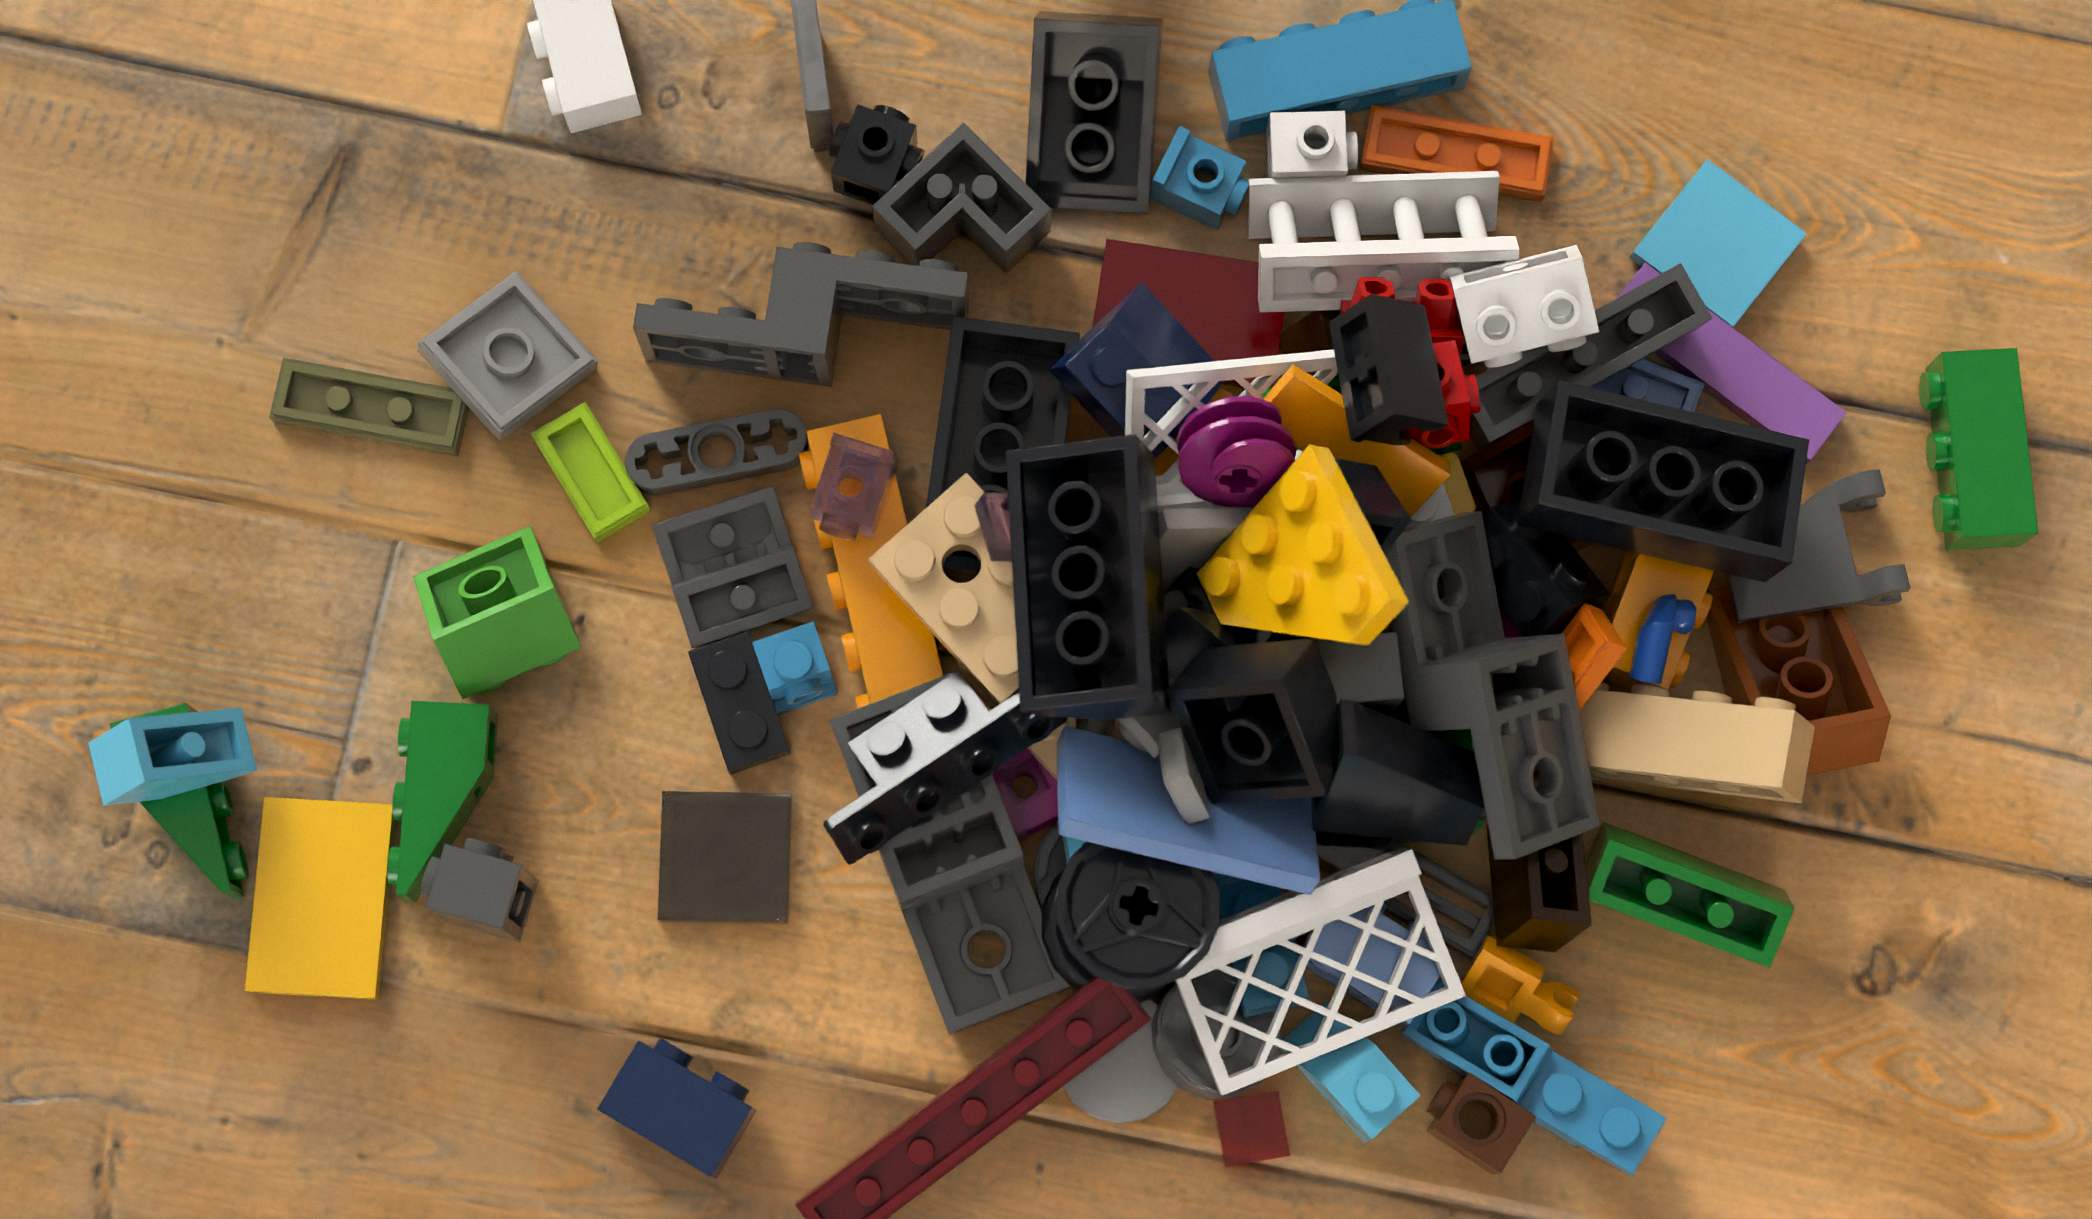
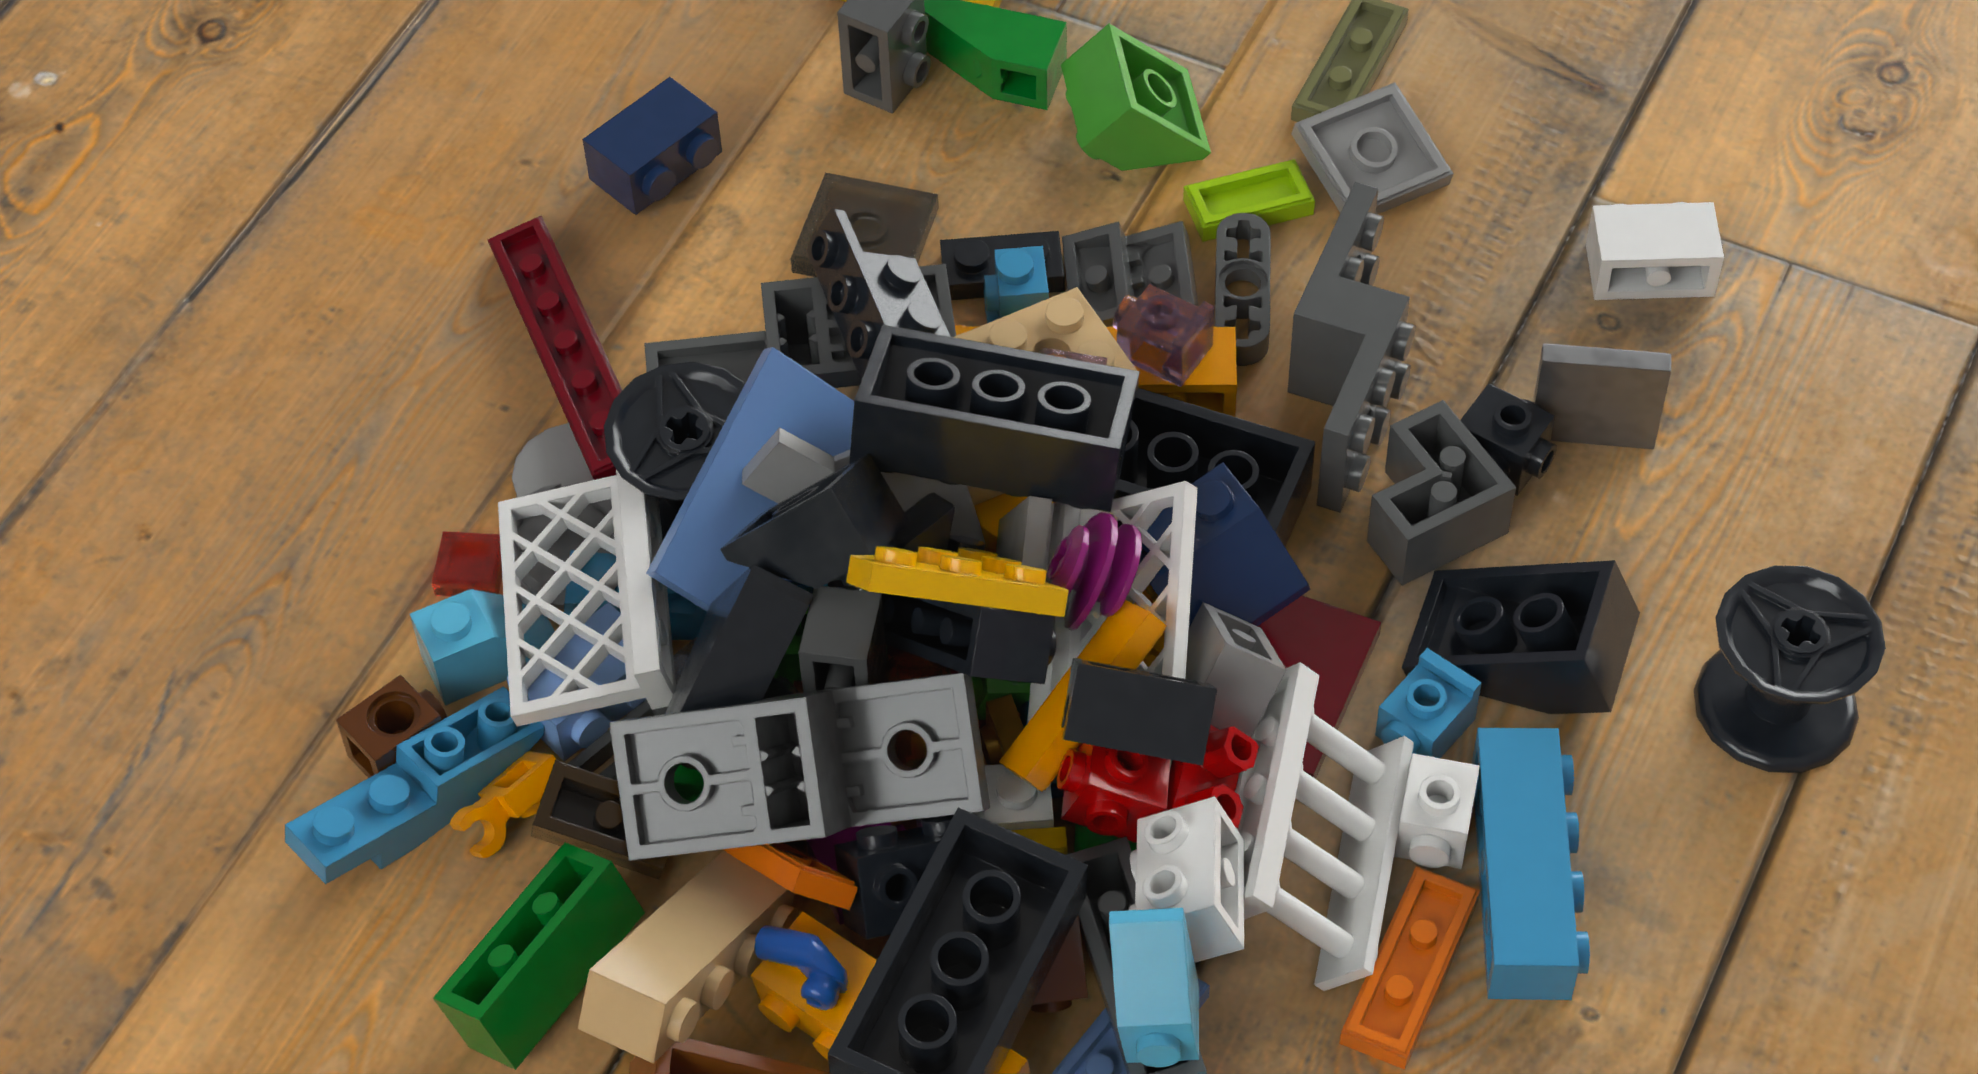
camera: 110 degrees right, 25 degrees down
(1270, 317) = (1236, 662): none -> light grey brick
(1651, 303) = (1155, 986): none -> medium azure slope

